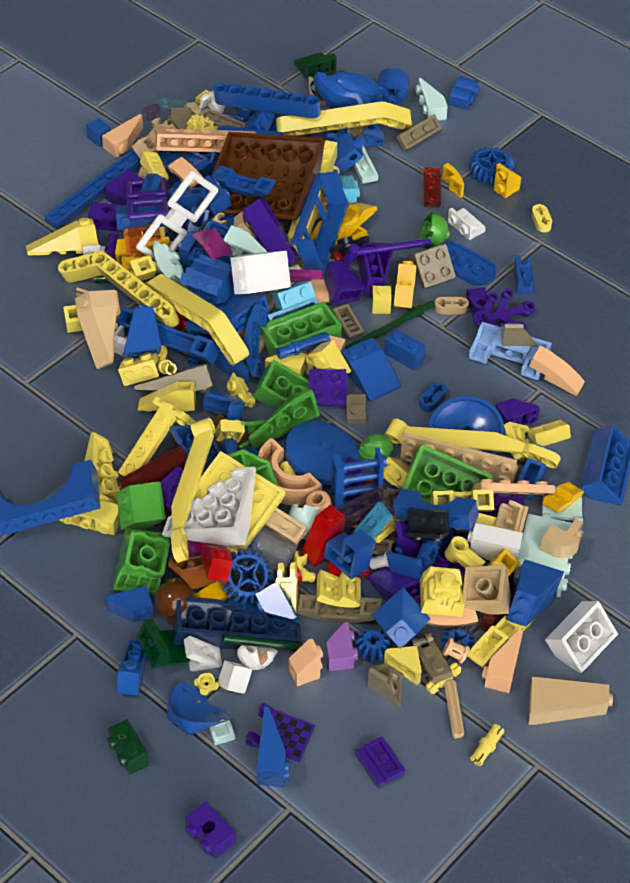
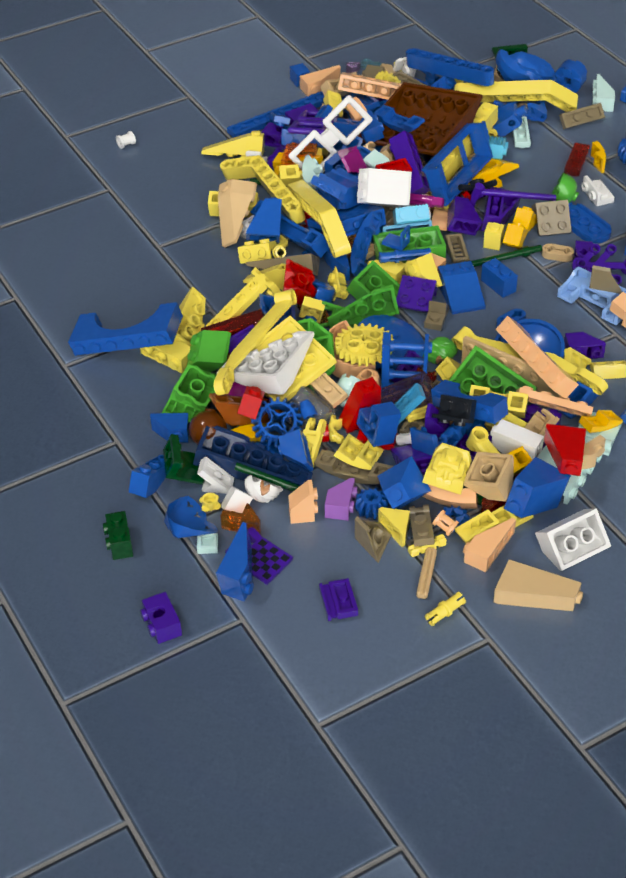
camera: 20 degrees right, 5 degrees down
(105, 199) = (279, 119): none -> blue plate
(206, 402) = (300, 280): none -> red slope
(248, 699) = (232, 520): none -> clear orange slope
(262, 243) = (398, 165): none -> red tile
(274, 555) = (307, 409): none -> blue hose
(289, 331) = (398, 242): none -> blue bracket
(303, 465) = (360, 344): none -> light yellow gear
(483, 443) = (537, 359): none -> light nougat arch
(552, 543) = (566, 447): none -> red slope

